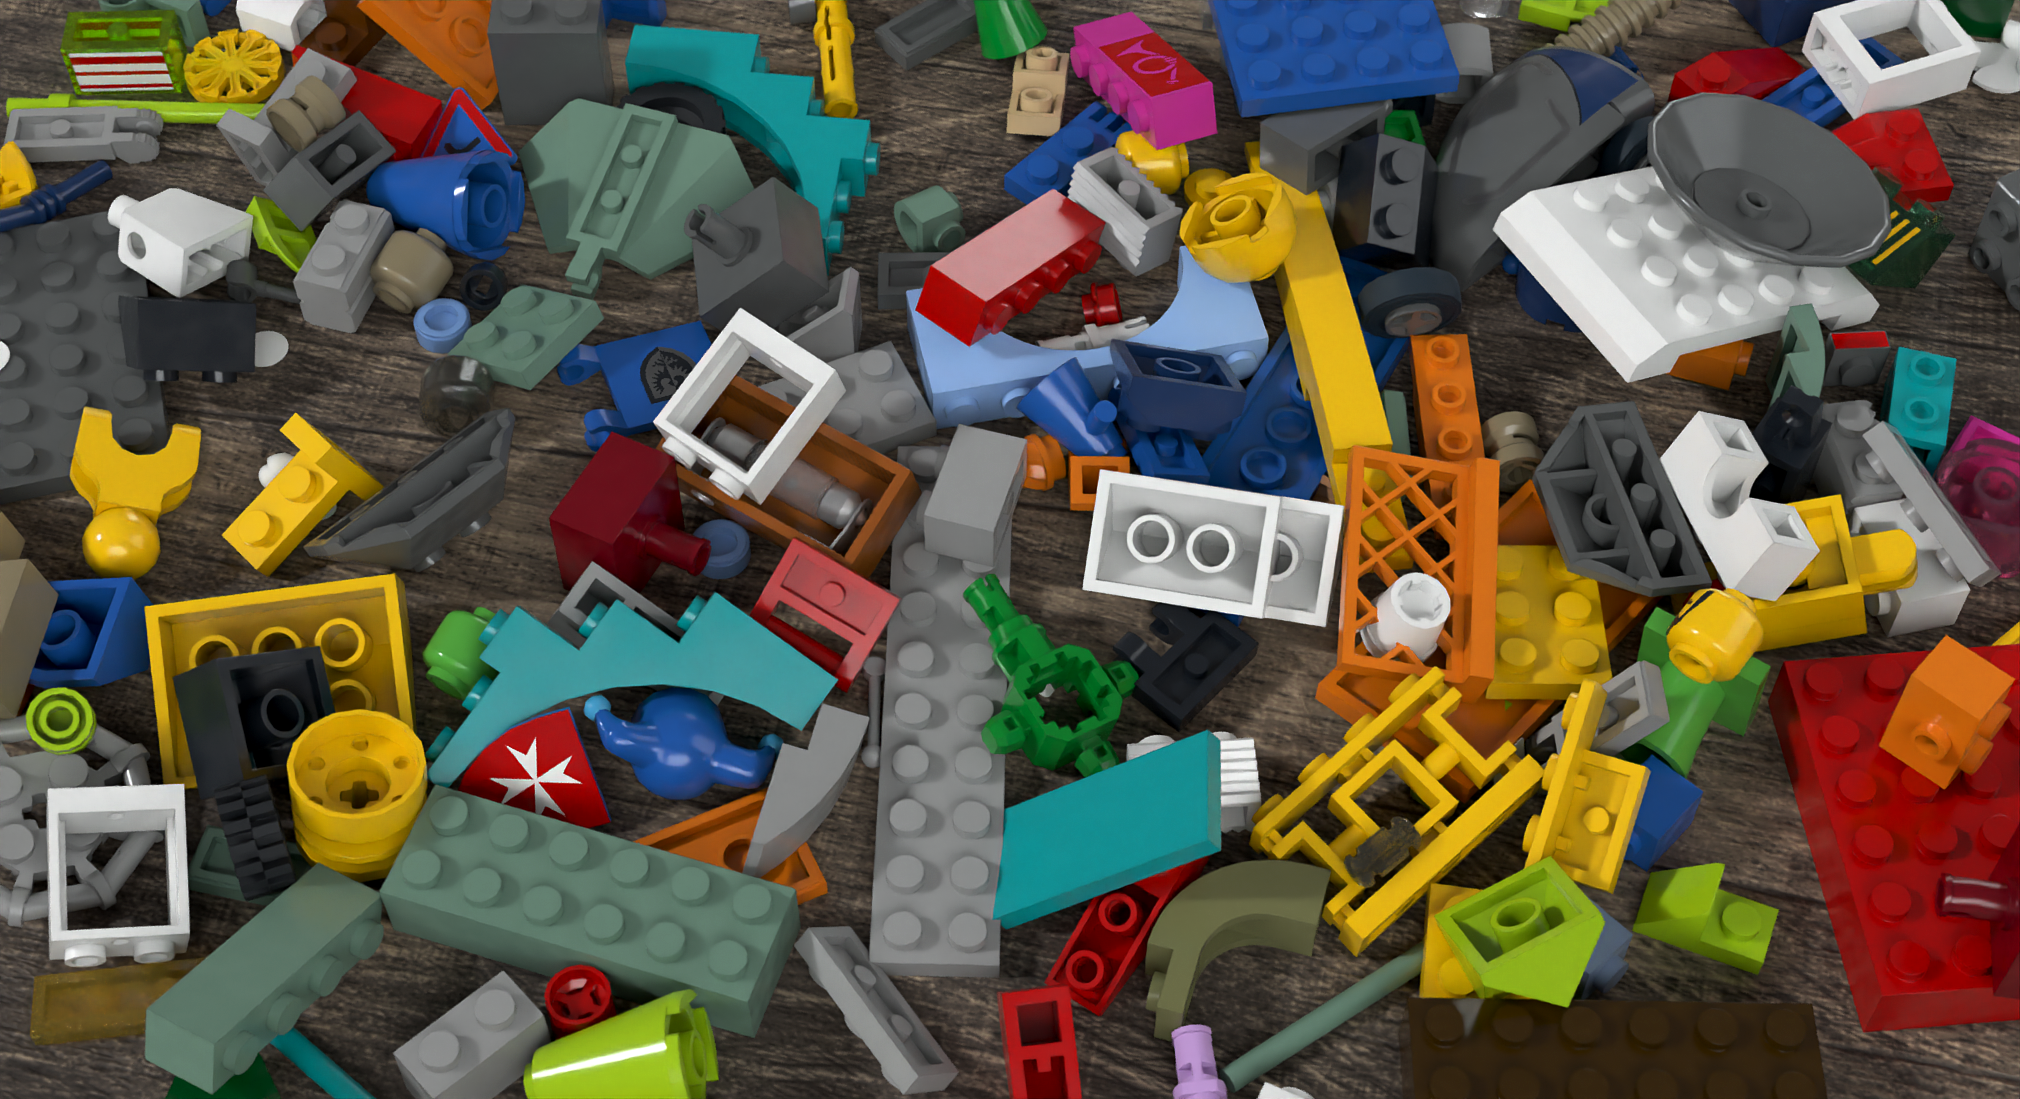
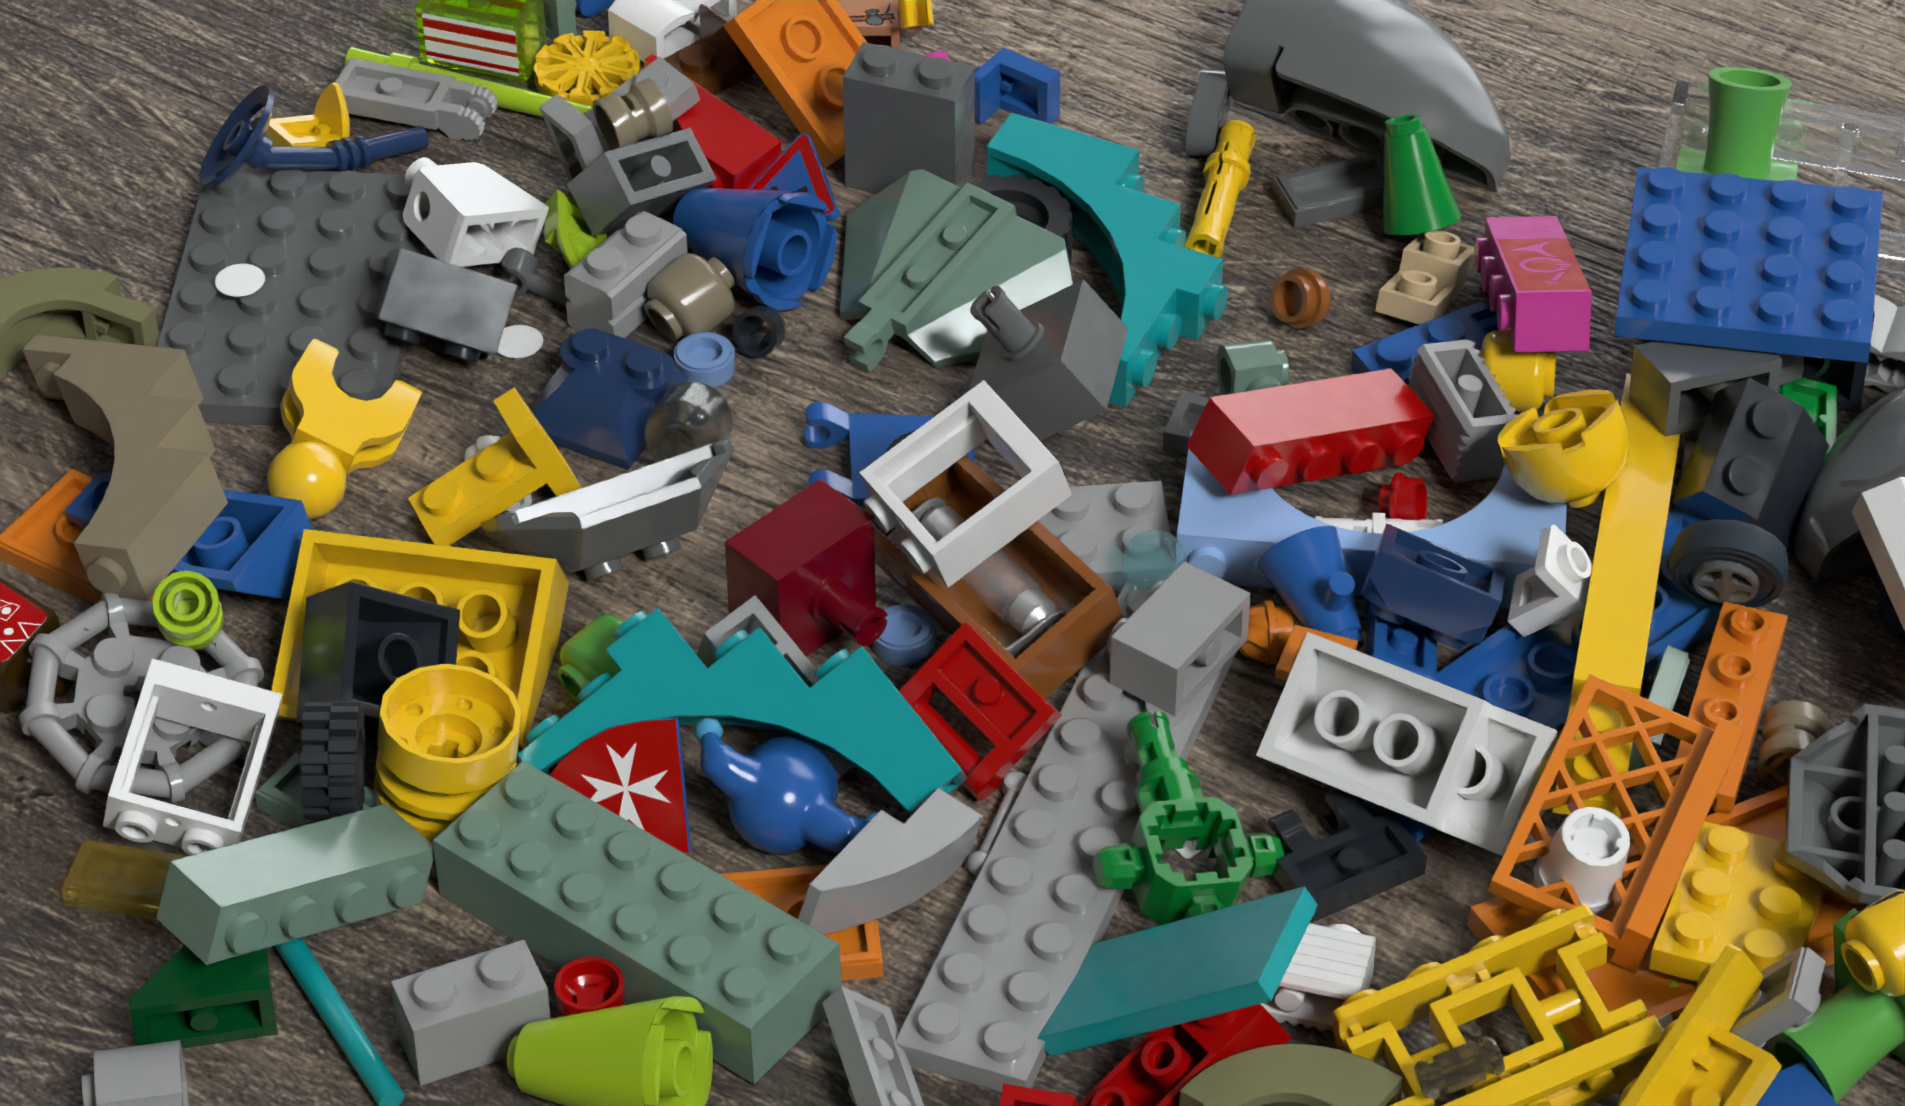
camera: 20 degrees right, 10 degrees down
(368, 385) = (604, 396): none -> dark blue slope
(529, 334) = (786, 383): sand green plate -> none
(832, 323) = (1104, 446): light grey slope -> none
(919, 422) = (1152, 558): none -> clear light blue plate
(943, 137) = (1300, 298): none -> dark orange plate
(1272, 361) = (1552, 587): none -> white bracket

